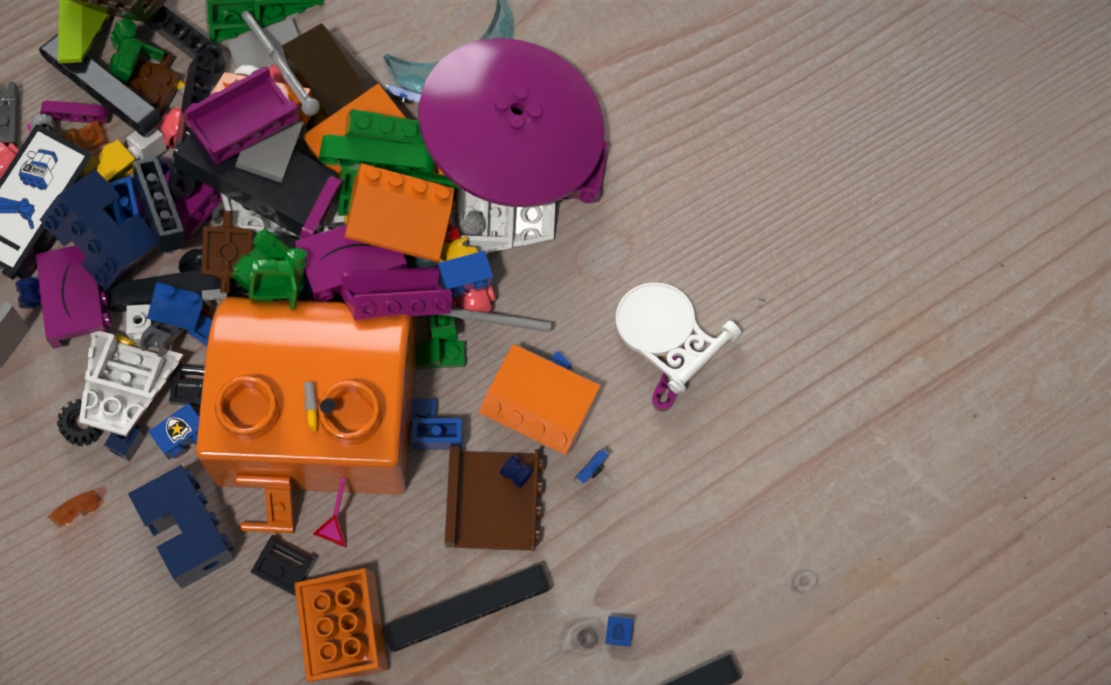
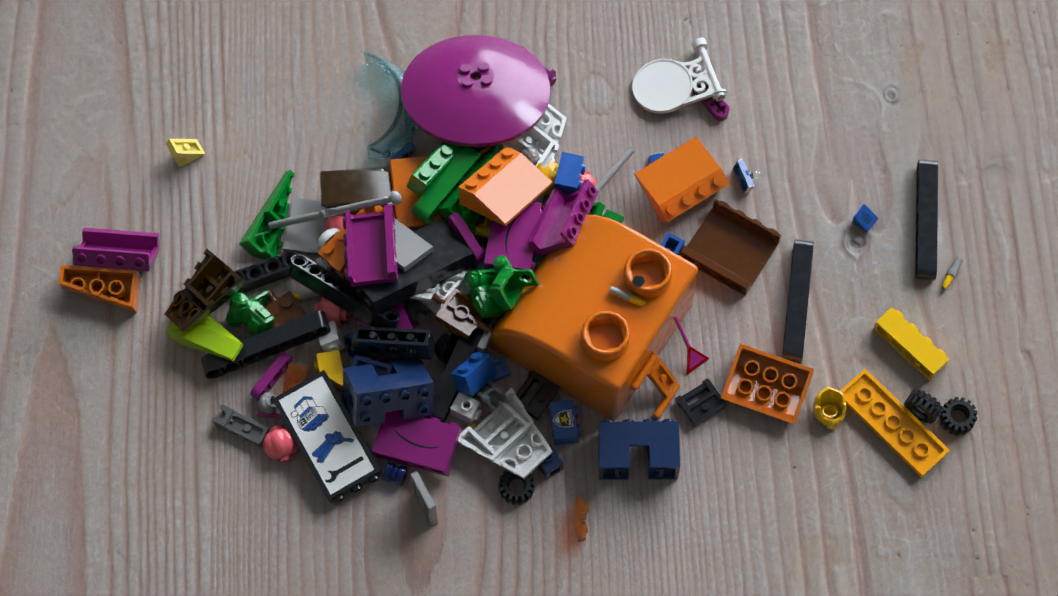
camera: 60 degrees left, 5 degrees down
(514, 470) = (721, 221): clear blue wheel -> none

